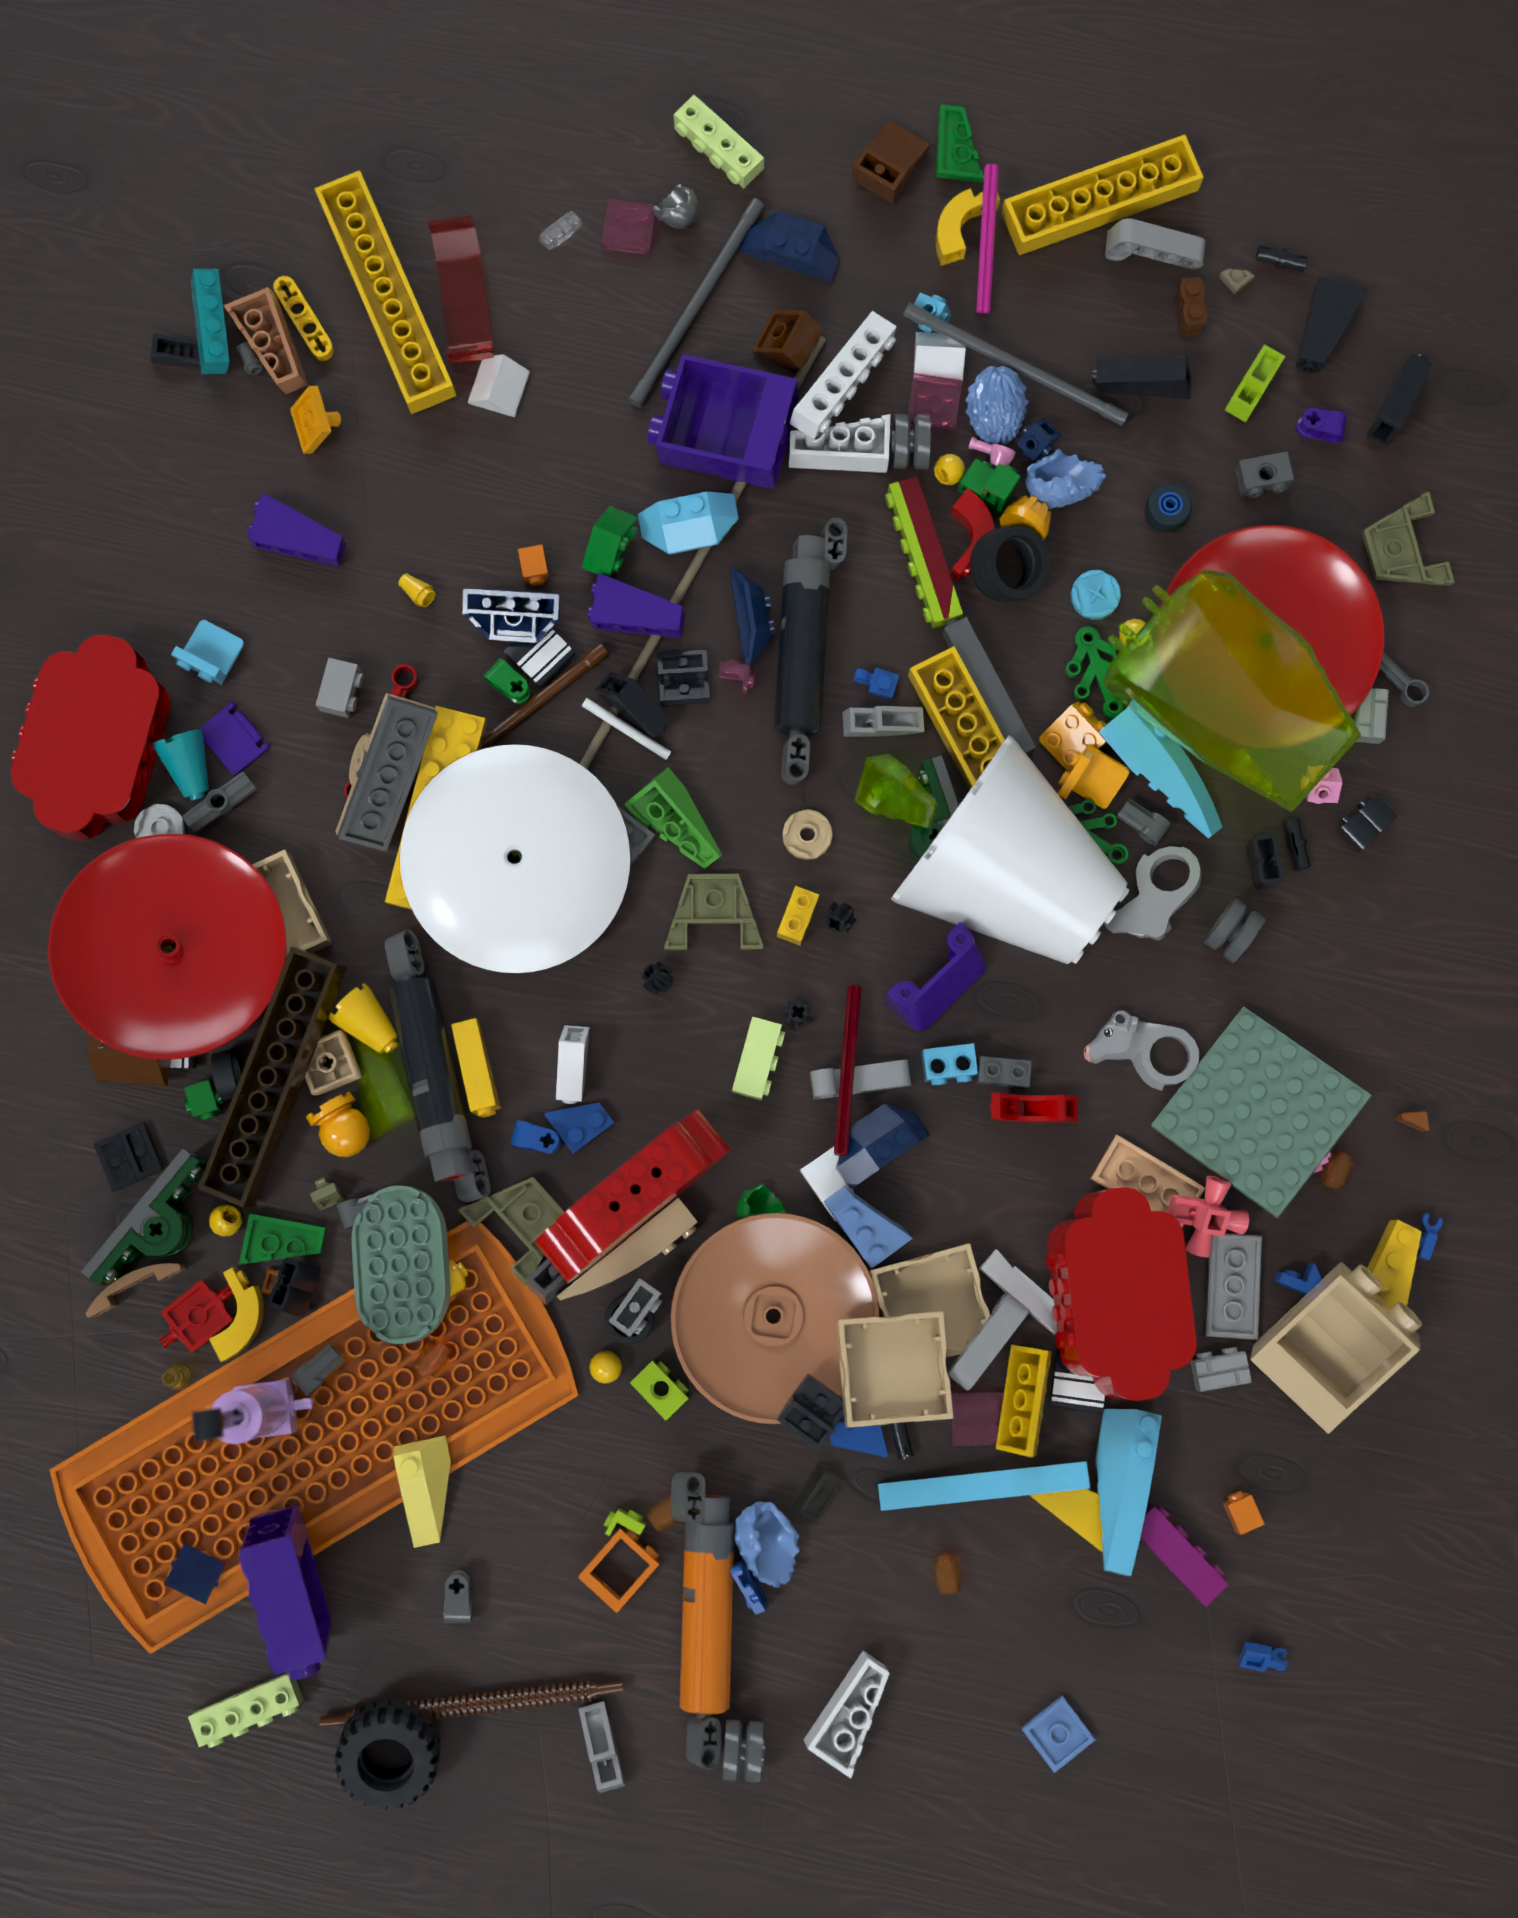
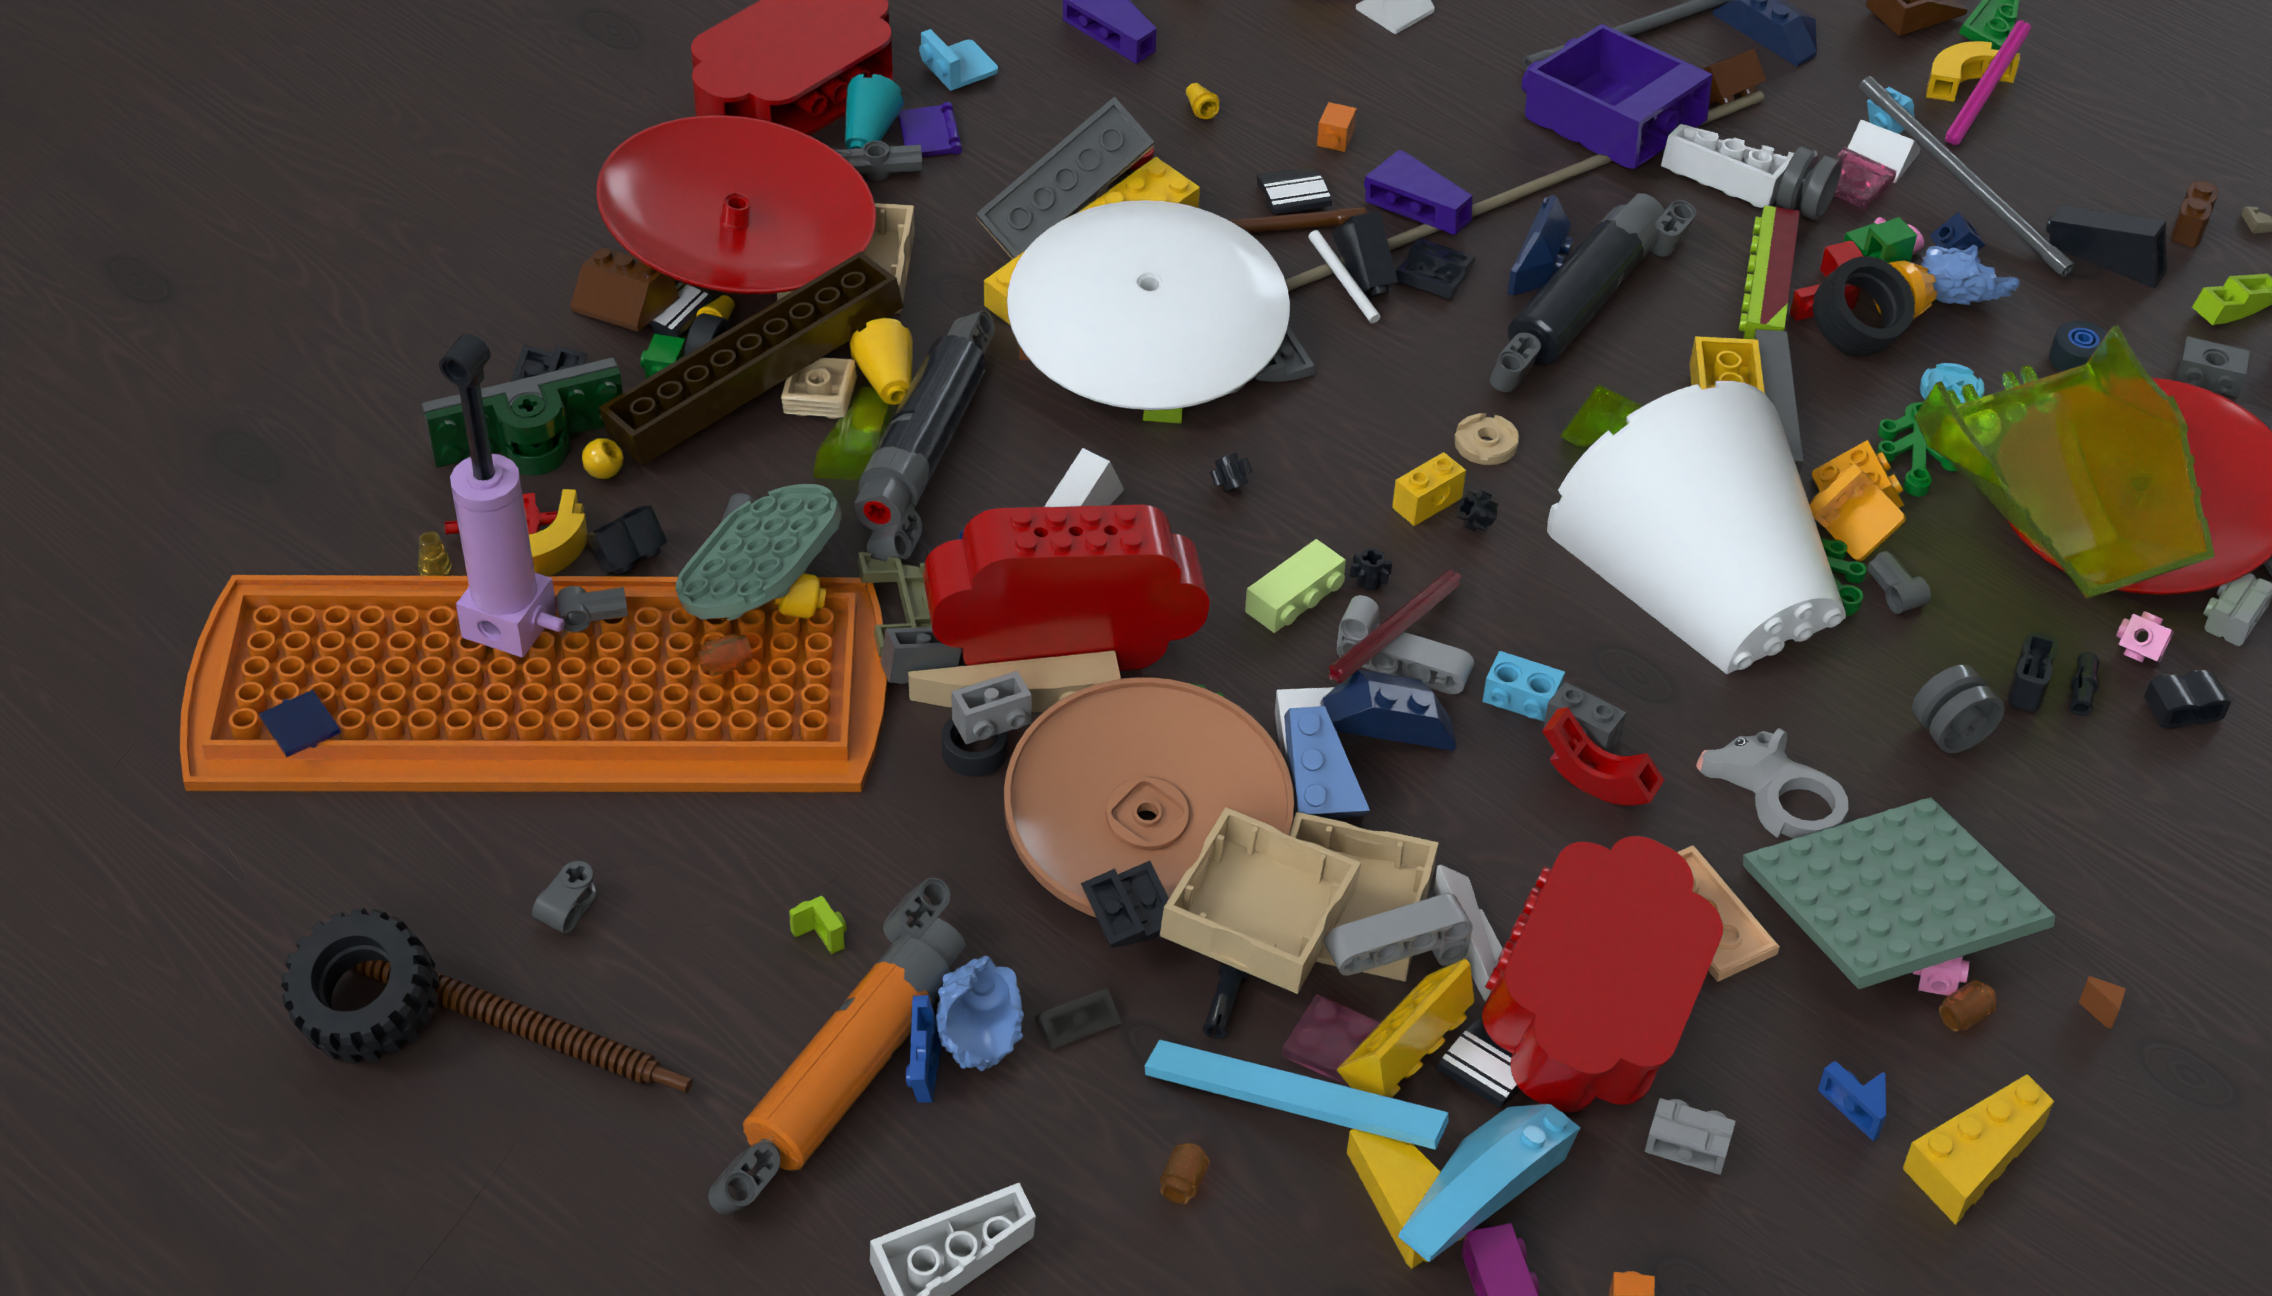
camera: 30 degrees right, 35 degrees down
(106, 1300) = (421, 465): medium nougat slope -> none
(245, 1709) = (239, 881): yellowish green brick -> none
(277, 1238) = (636, 489): green wing -> none
(286, 1592) = (389, 747): dark purple brick -> none
(326, 1195) = (723, 485): olive tile -> none
(339, 688) = (1059, 123): light grey brick -> none
(342, 1128) = (790, 429): light orange tile -> none
(423, 1482) = (620, 761): light yellow wedge -> none
(475, 1068) = (971, 457): yellow slope -> none
(506, 679) = (1243, 195): green piece -> none
(511, 613) = (1286, 140): dark blue wedge -> none
(600, 1588) = (785, 988): orange window -> none
(601, 1747) = (611, 1136): light grey slope -> none
(605, 1367) = (913, 771): yellow piece -> none
(608, 540) = (1427, 130): green brick -> none
(661, 1515) = (870, 940): clear orange brick -> none
(665, 1404) = (960, 820): lime brick -> none
(671, 812) = (1344, 356): bright green wedge -> none
(689, 521) = (1527, 152): medium azure wedge -> none
(713, 901) = (1336, 441): olive wing -> none
(734, 670) = (1495, 282): clear pink bracket -> none
(743, 1751) = (785, 1210): dark grey wheel -> none
(862, 1438) = (1171, 979): blue wing -> none
(867, 346) = (1765, 109): white brick -> none
(881, 682) = (1651, 357): blue plate -> none
(882, 721) = (1632, 380): light grey slope -> none
(924, 1006) = (1556, 603): dark purple windscreen -> none
(949, 469) = (1838, 223): yellow piece -> none
(997, 405) = (1926, 193): medium blue hair -> none
(1102, 194) = (2138, 100): yellow brick -> none
(1151, 910) = (1864, 656): light grey animal -> none
(1154, 242) = (2177, 149): light grey beam -> none
(1164, 765) = (1945, 513): medium azure wedge -> none
(1208, 1215) = (1766, 961): coral brick -> none
(1233, 1286) = (1759, 1064): light grey tile -> none
(1337, 1345) = (1870, 1149): tan brick -> none
(1428, 1237) = (2055, 1134): blue plate -> none

